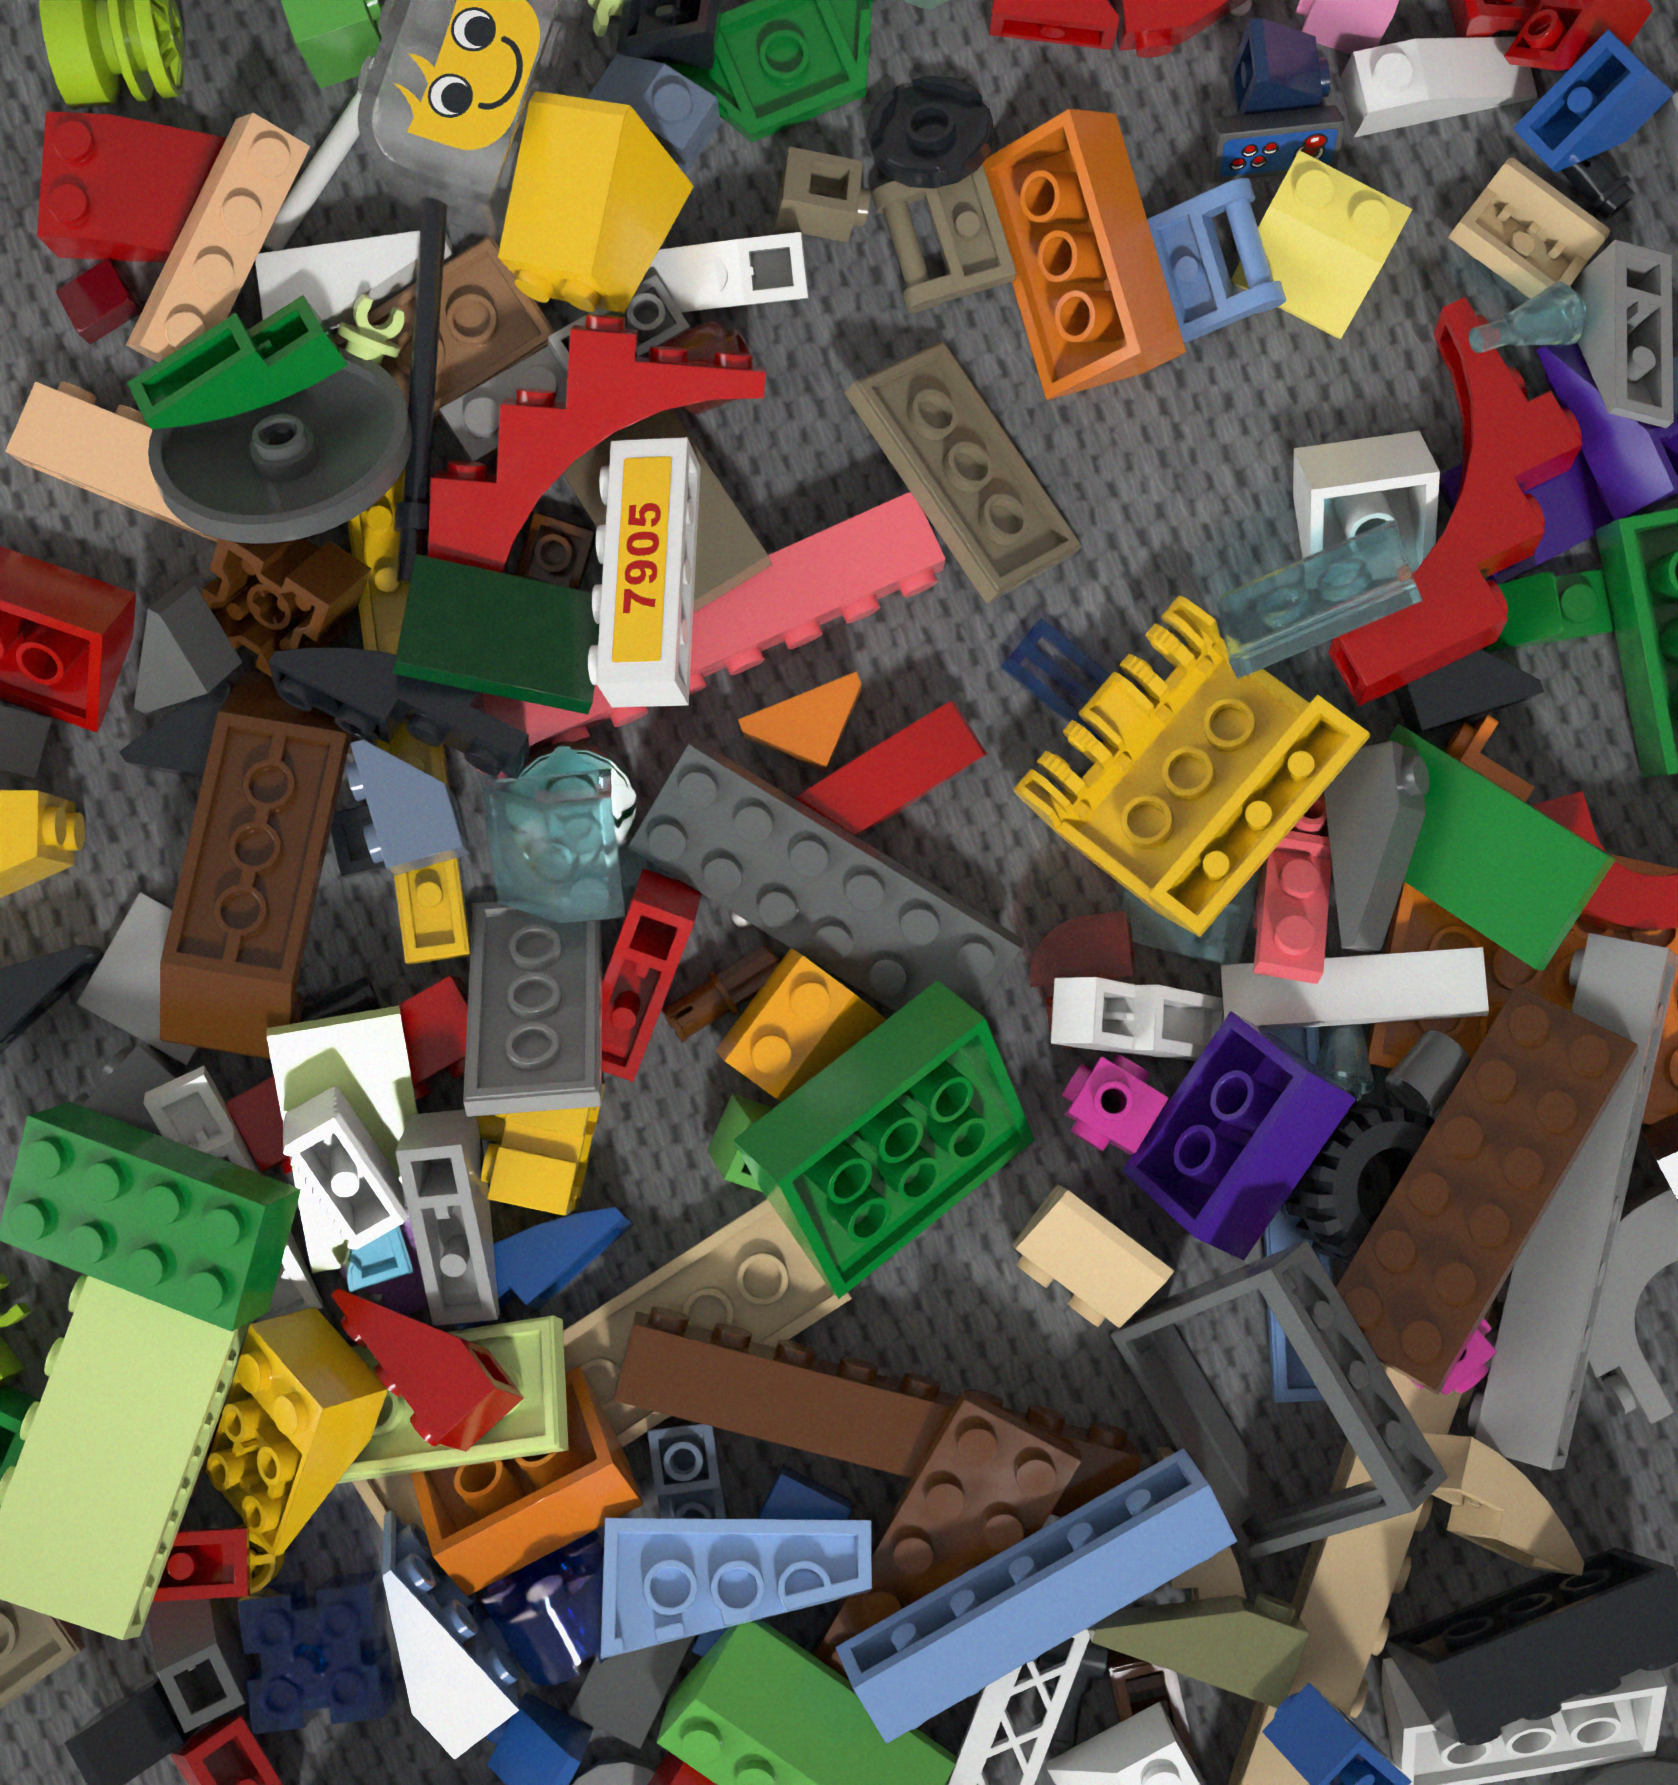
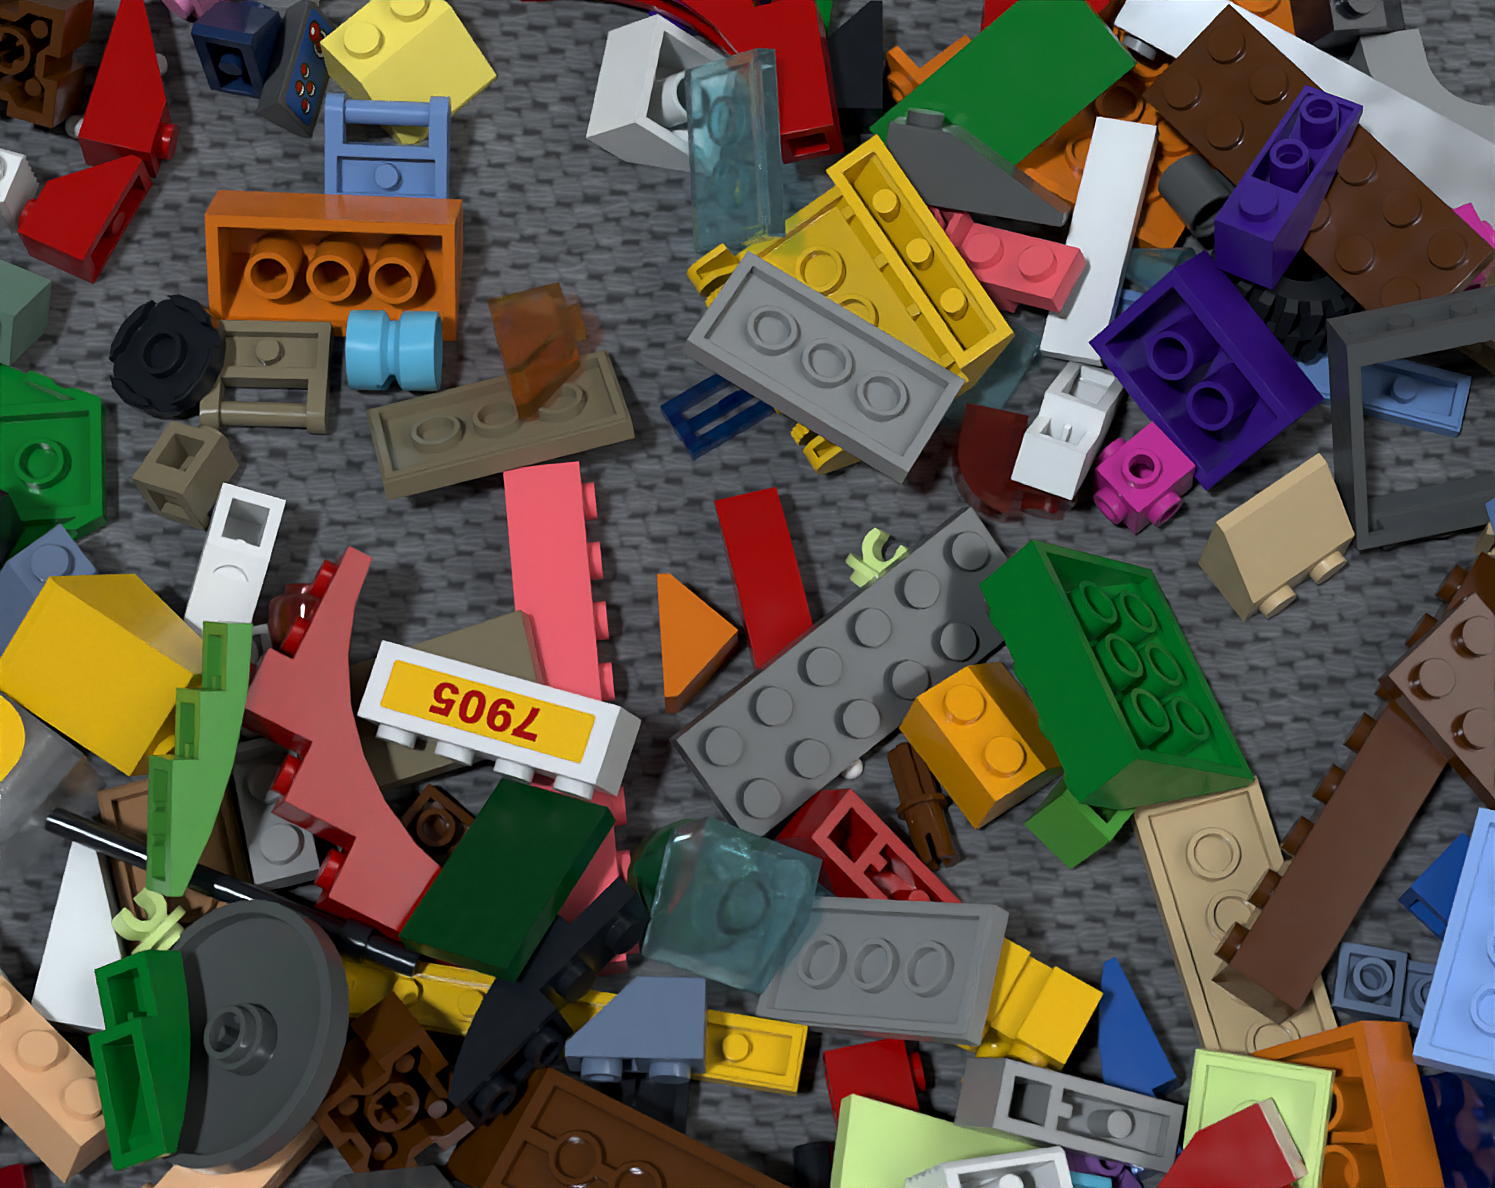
camera: 75 degrees left, 15 degrees down
(496, 313) = (191, 783): none -> bright green slope
(945, 869) = (872, 561): none -> yellowish green plate
(1003, 334) = (394, 350): none -> medium azure wheel
(1054, 476) = (536, 343): none -> clear orange slope
(1110, 760) = (823, 366): none -> light grey plate
(1442, 1159) = (1284, 188): none -> dark purple slope

